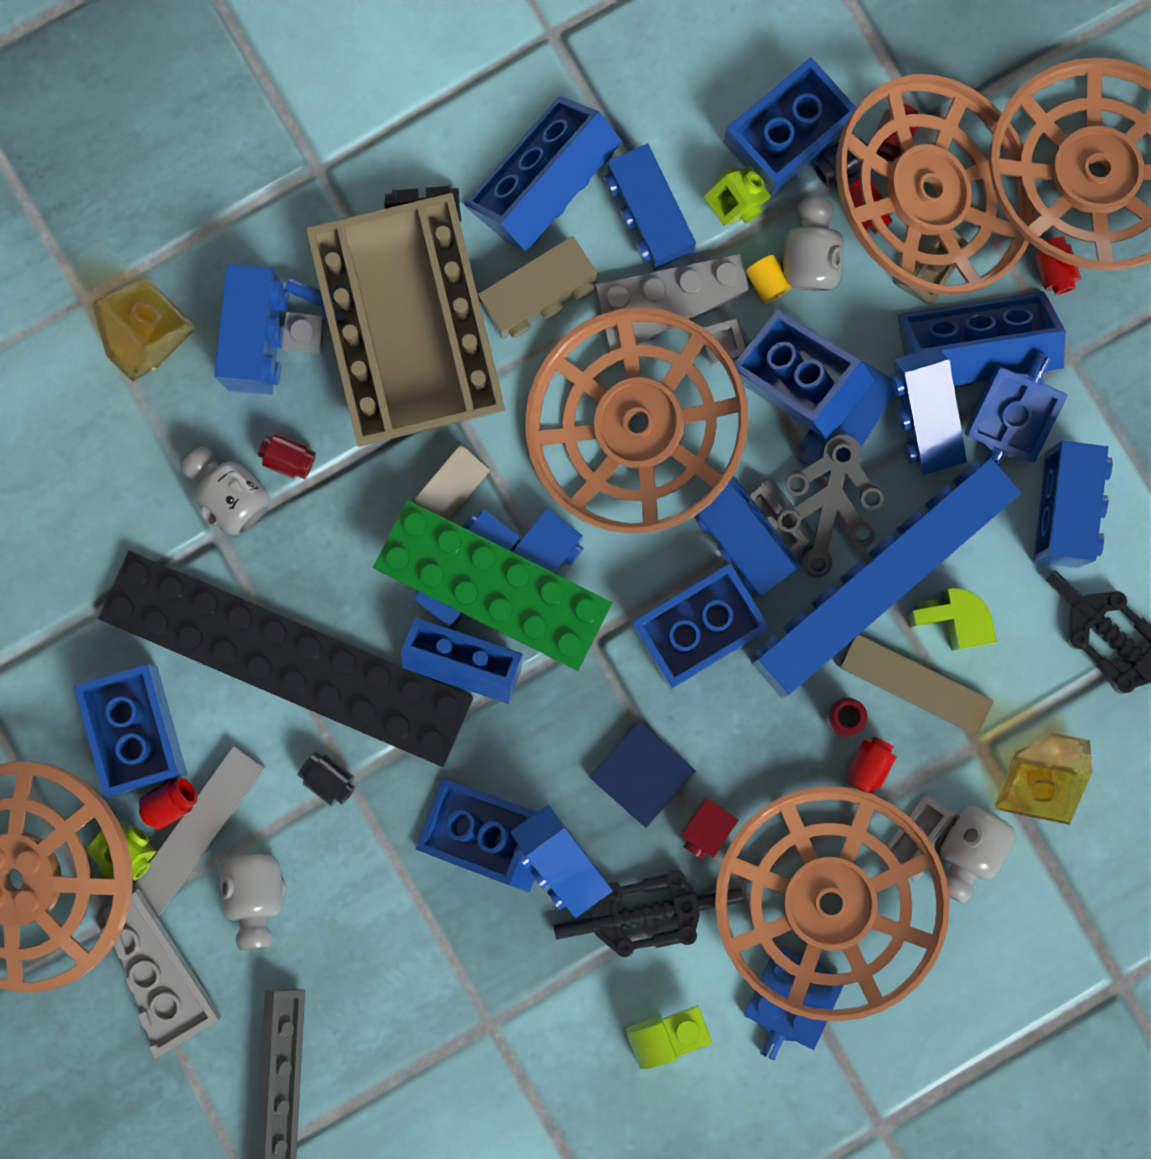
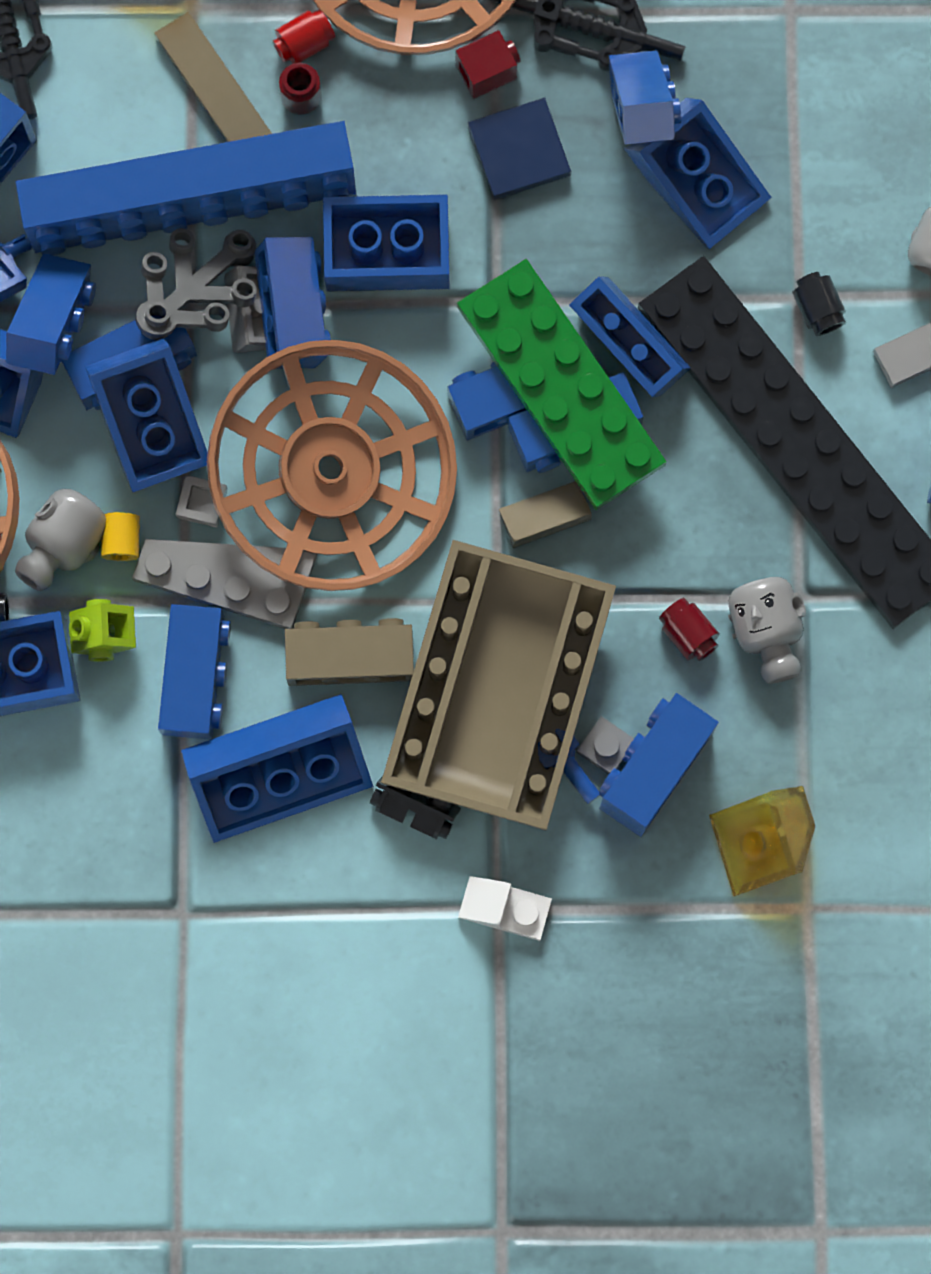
camera: 155 degrees left, 5 degrees down
(312, 169) = (504, 907): none -> white slope
(966, 616) = (133, 118): lime brick -> none

